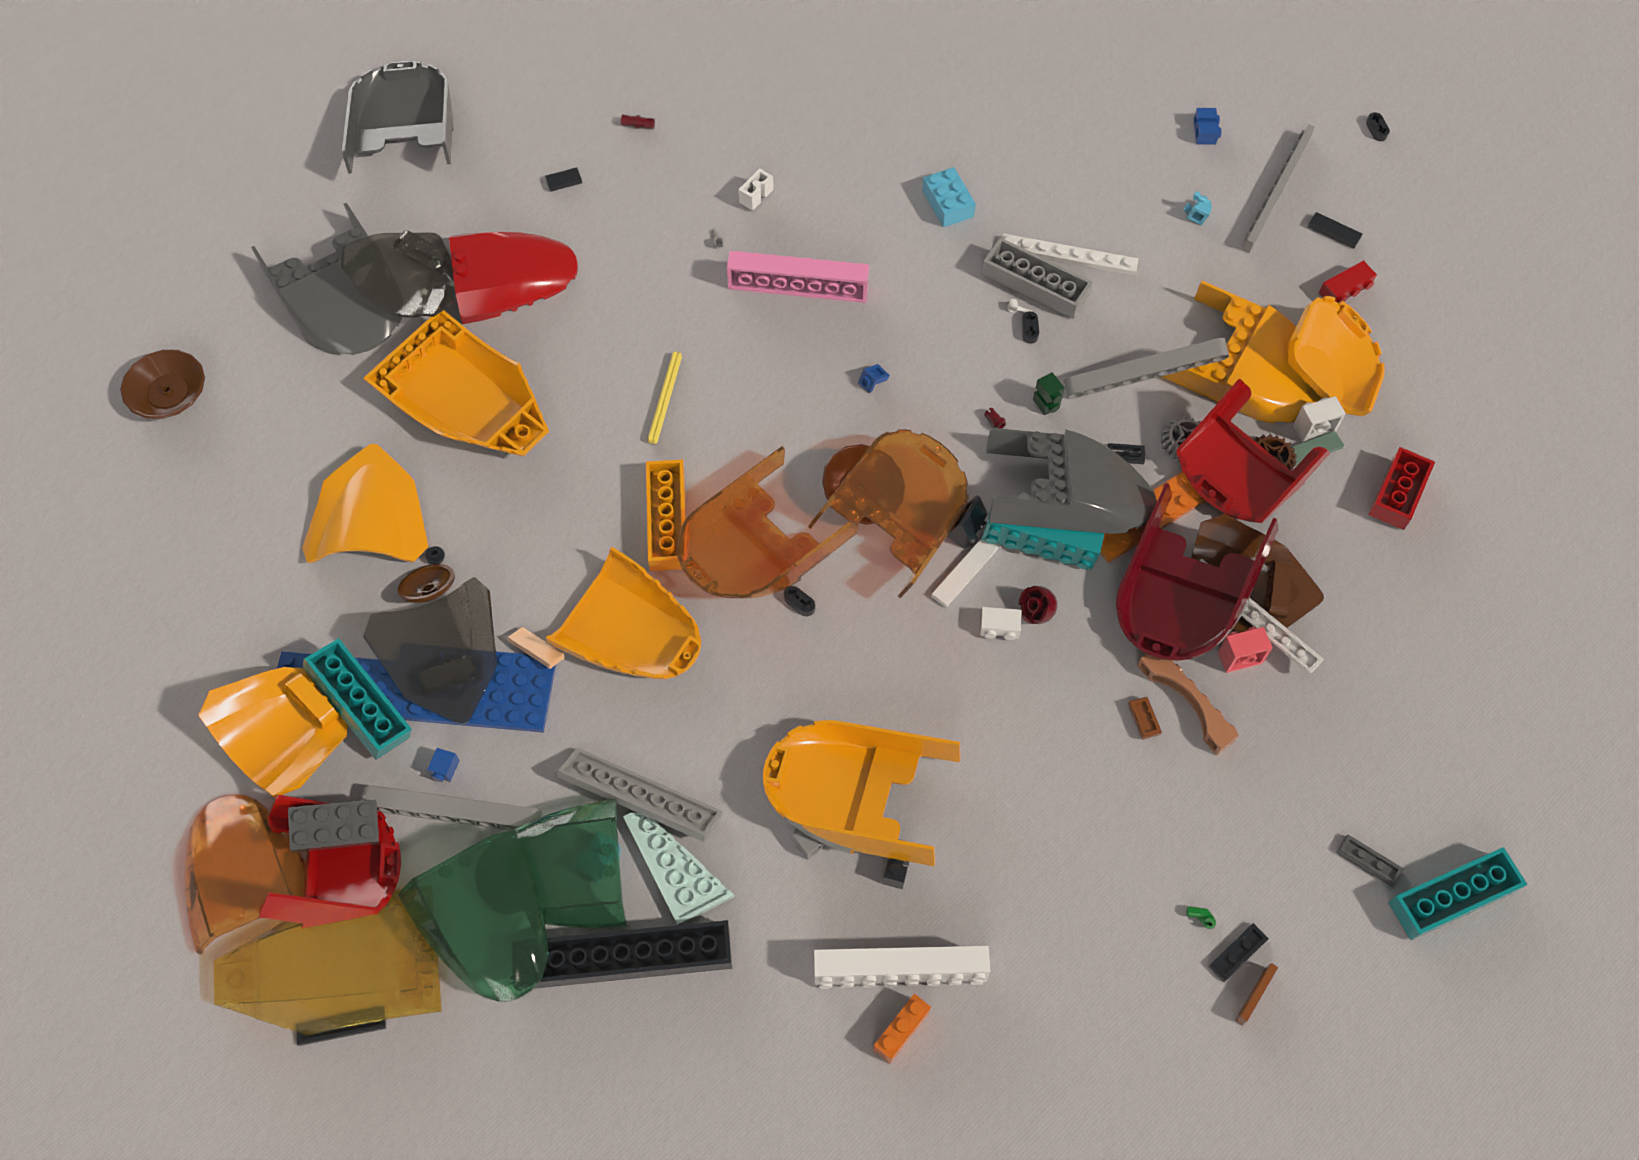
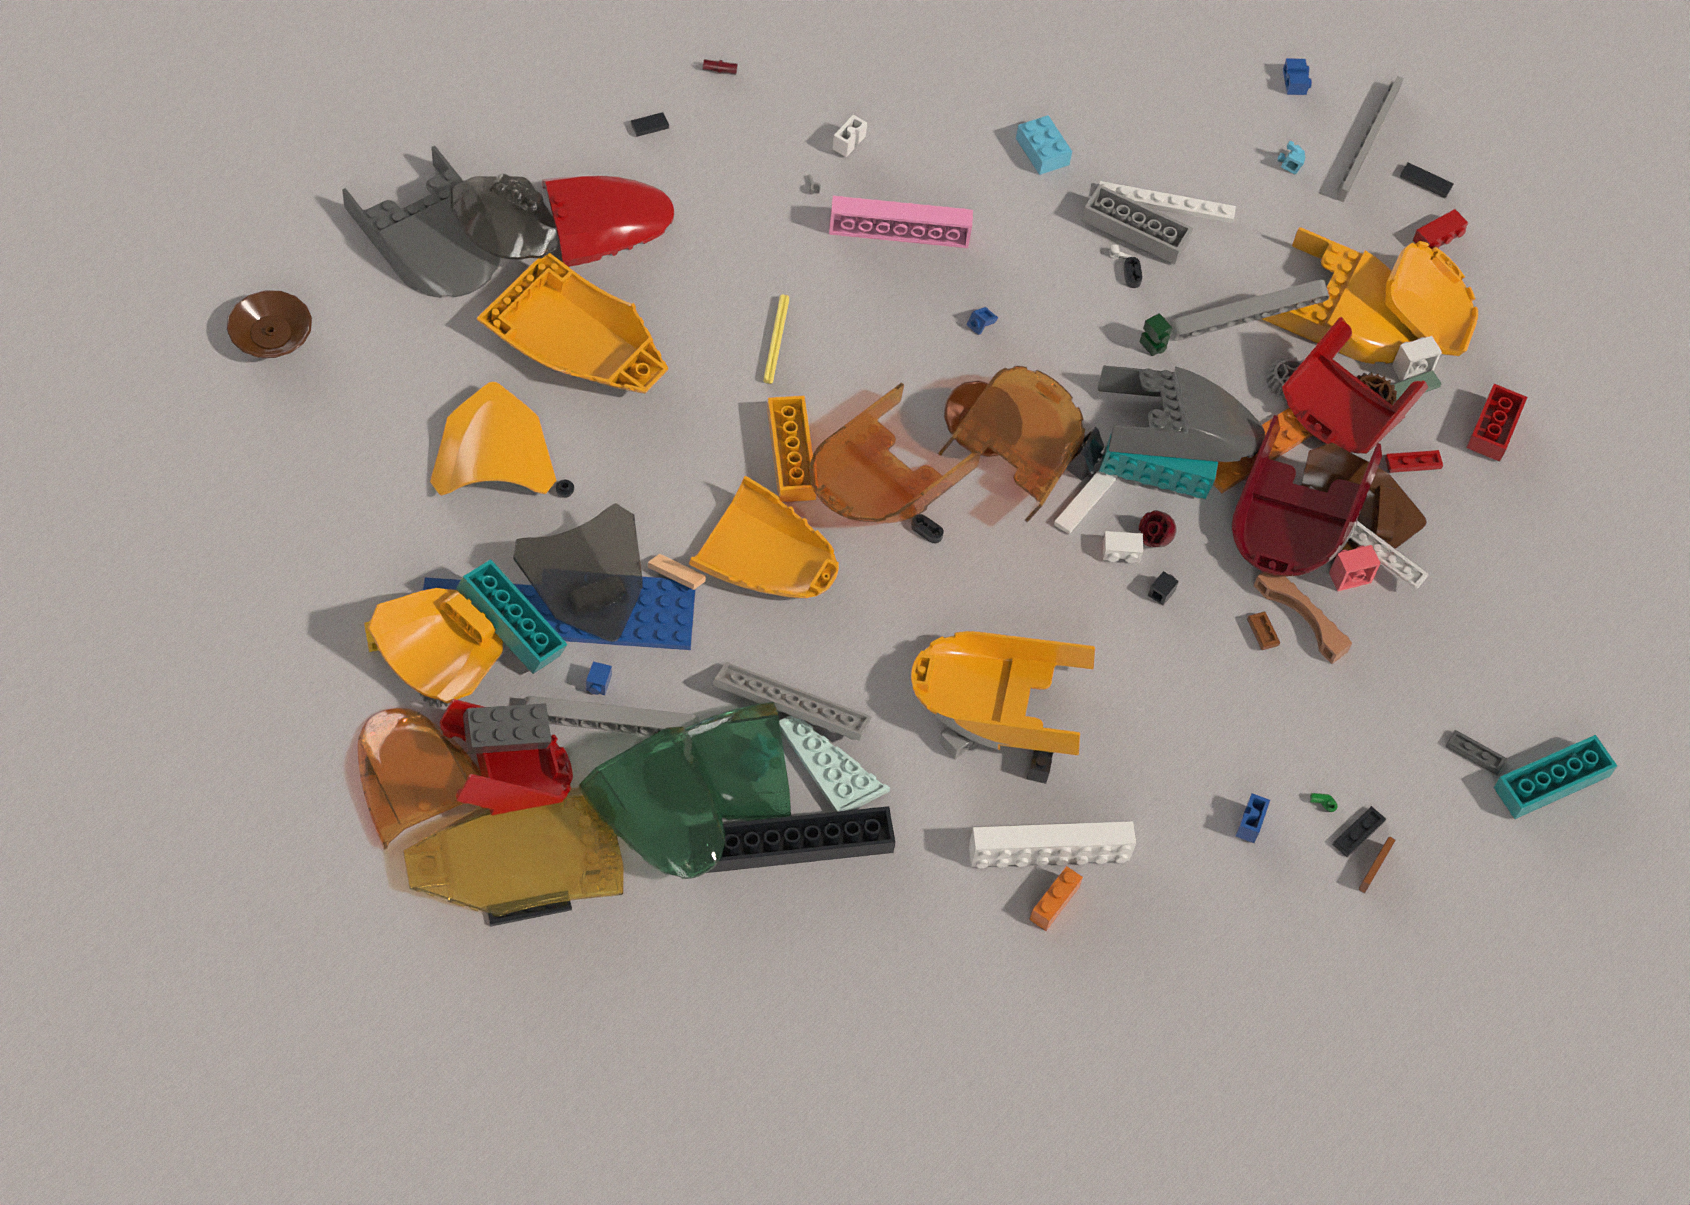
camera: 10 degrees left, 5 degrees down
(395, 105) = (475, 46): dark grey windscreen -> none
(426, 583) = (562, 513): reddish brown dish -> none
(995, 419) = (1104, 358): dark red pin -> none
(1040, 669) = (1163, 588): none -> black brick
(1121, 943) = (1253, 818): none -> blue brick
(1130, 457) = (1241, 396): black tile -> none
(1312, 529) = (1414, 461): none -> red plate
(1375, 123) = (1467, 78): black beam -> none

